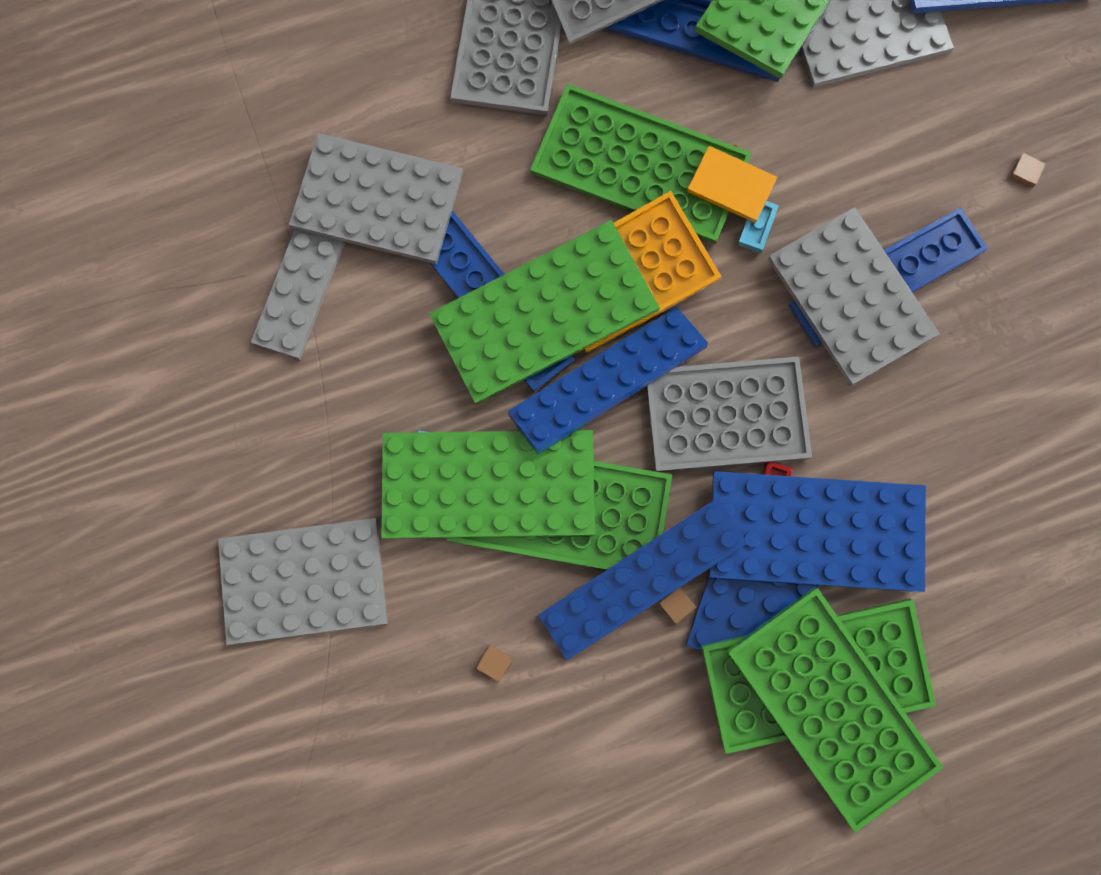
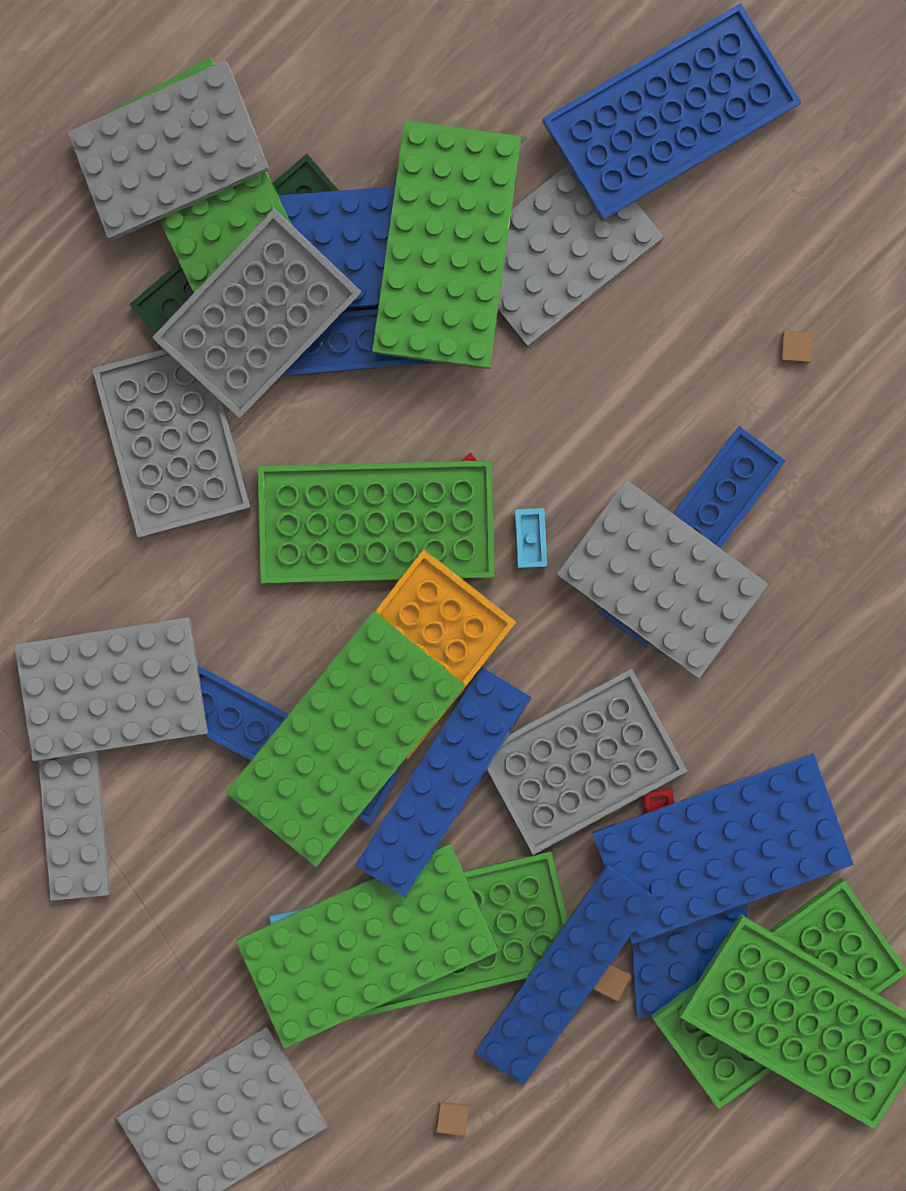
camera: 25 degrees left, 10 degrees up
(732, 184) = (485, 508): light orange tile -> none

